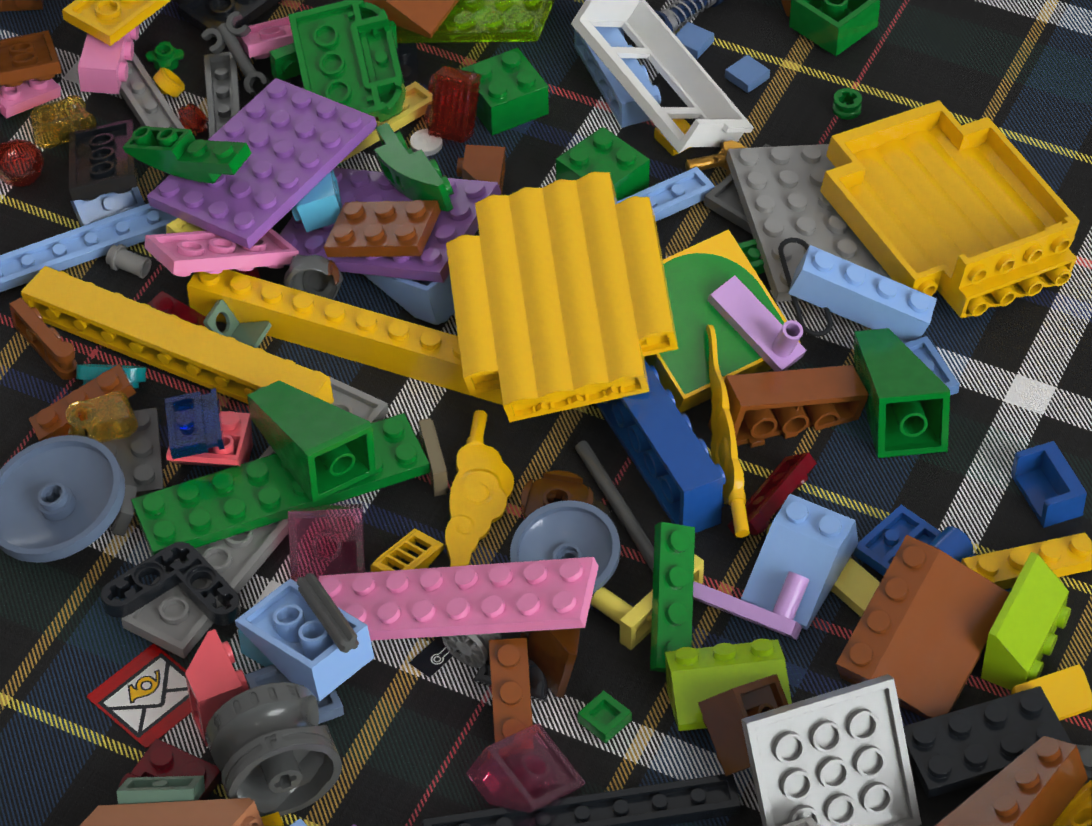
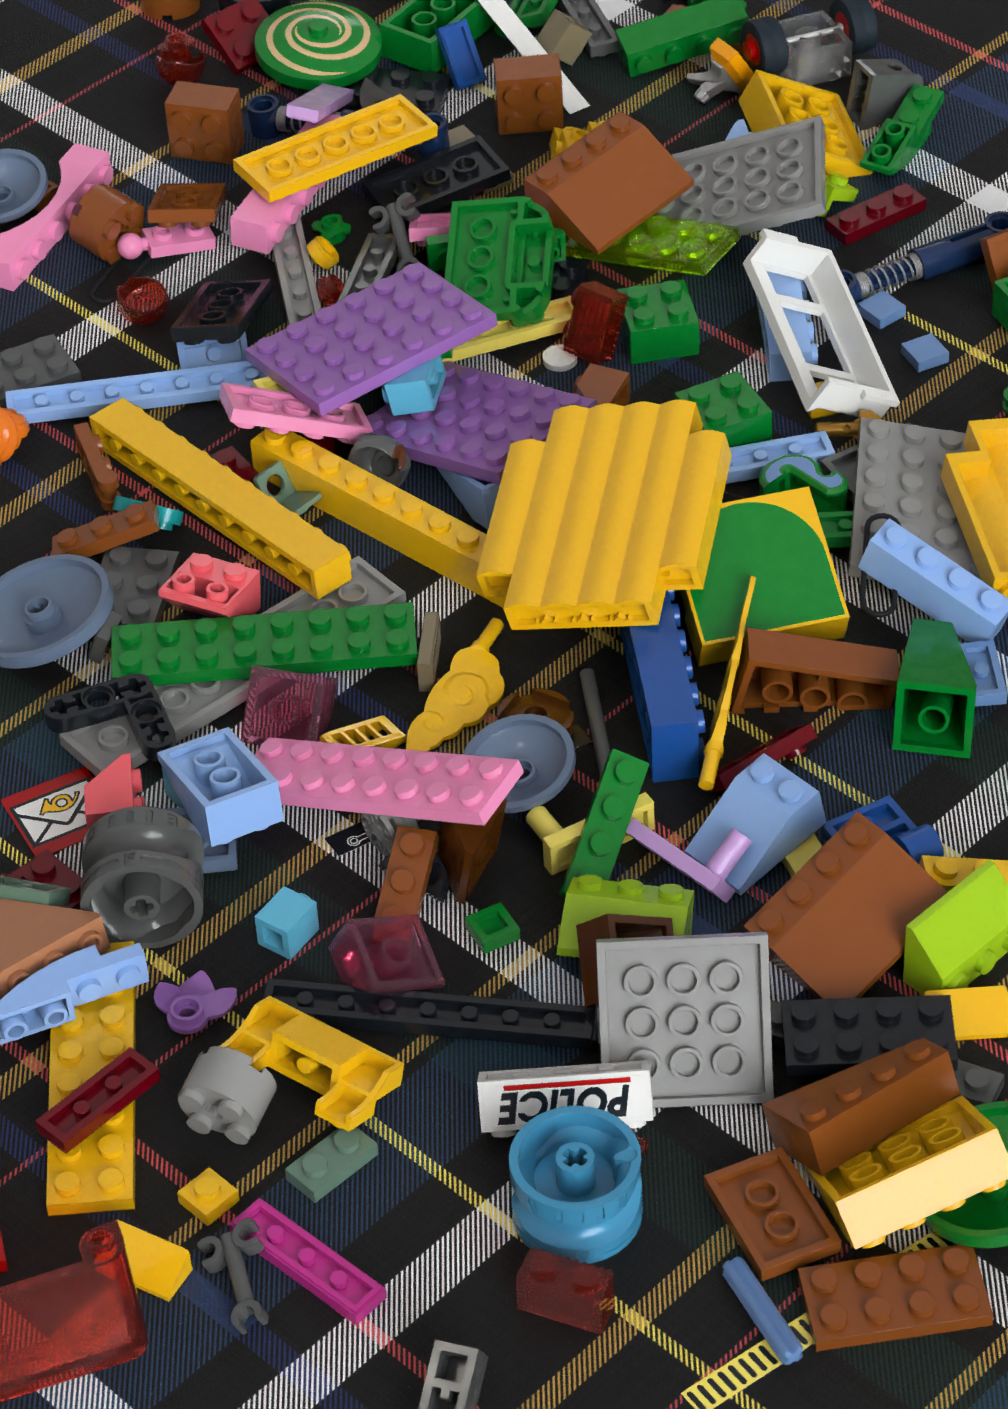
camera: 20 degrees right, 5 degrees down
(56, 120) = (194, 267): clear yellow piece -> none
(102, 417) = (117, 545): clear yellow piece -> none
(120, 258) = (203, 407): light grey pin -> none
(184, 156) = (289, 314): green slope -> none
(194, 423) = (193, 564): clear blue plate -> none
(313, 438) = (305, 603): green slope -> none
(327, 613) = (243, 761): dark grey axle -> none
(382, 228) = (462, 422): dark orange plate -> none
(411, 171) = (512, 373): green slope -> none
(415, 758) = (287, 922): none -> medium azure brick
(698, 218) = (800, 471): none -> green animal
(757, 325) = (805, 588): lavender piece -> none

